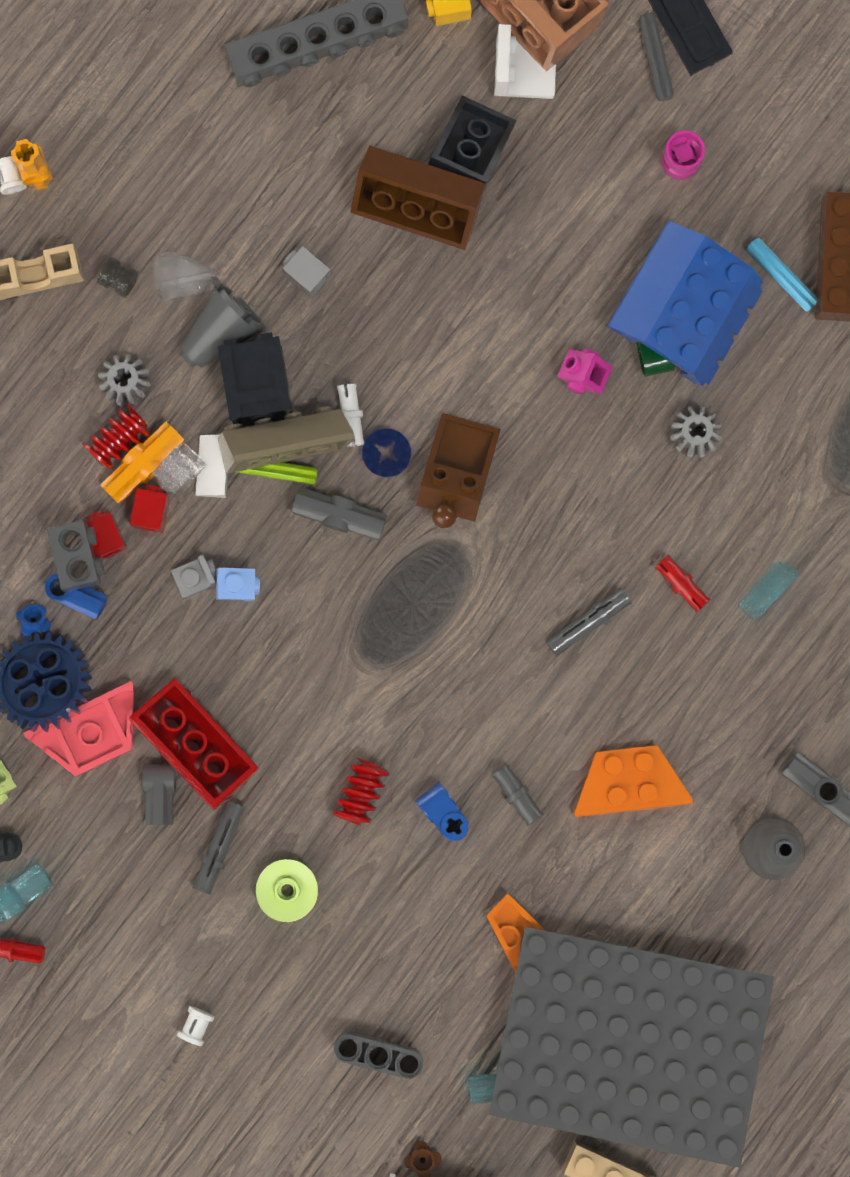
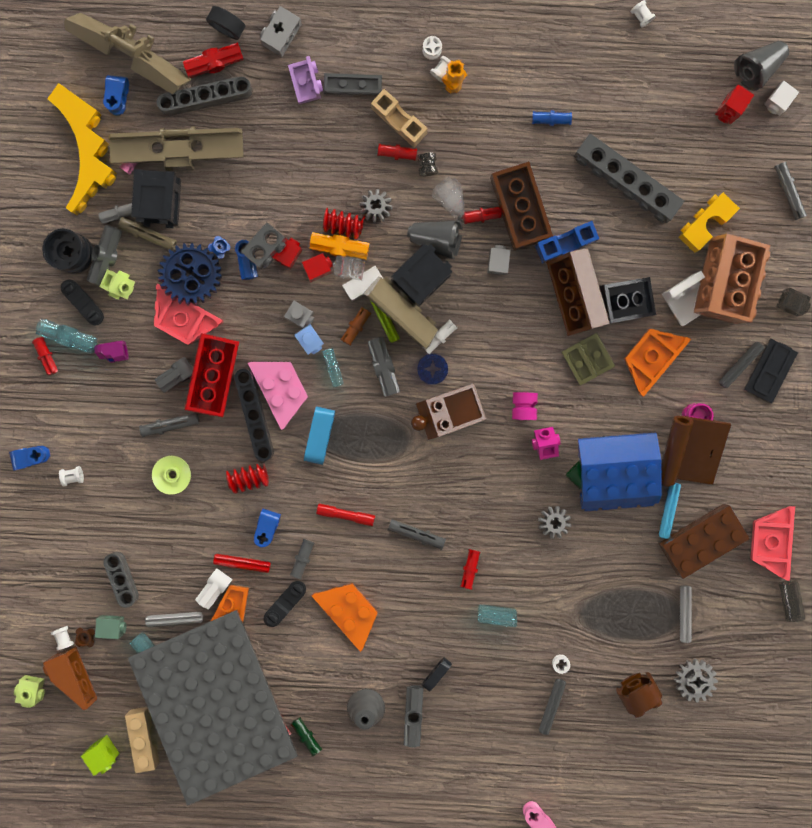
camera: 55 degrees right, 5 degrees up
(69, 855) = (112, 351): none -> magenta rock
(74, 305) = (397, 152): none -> red pin
(129, 1069) = (27, 457): none -> blue piece
(171, 80) = (552, 118): none -> blue pin
(232, 252) = (482, 215): none -> red axle
(256, 194) = (521, 206): none -> reddish brown brick
(261, 514) = (355, 326): none -> dark orange pin
(271, 717) = (247, 407): none -> black beam
(273, 668) = (280, 388): none -> bright pink wing
(294, 580) = (333, 367): none -> clear light blue axle
(346, 158) = (567, 242): none -> blue arch
(370, 659) = (319, 435): none -> dark azure beam
(432, 1114) = (110, 627): none -> sand green brick
(468, 879) = (242, 563): none -> red axle
(473, 933) = (215, 585): none -> white piece
(480, 1022) = (174, 619): none -> light grey axle
(485, 710) = (357, 517): none -> red piece
(513, 244) = (588, 359): none -> olive slope
(517, 366) = (524, 406): none -> dark pink wheel
(561, 859) = (284, 603): none -> black piece
(568, 161) = (652, 357): none -> orange wing
(717, 192) = (693, 450): none -> reddish brown door
(757, 954) = (306, 736): none -> dark green pin
(791, 722) = (436, 674): none -> black beam

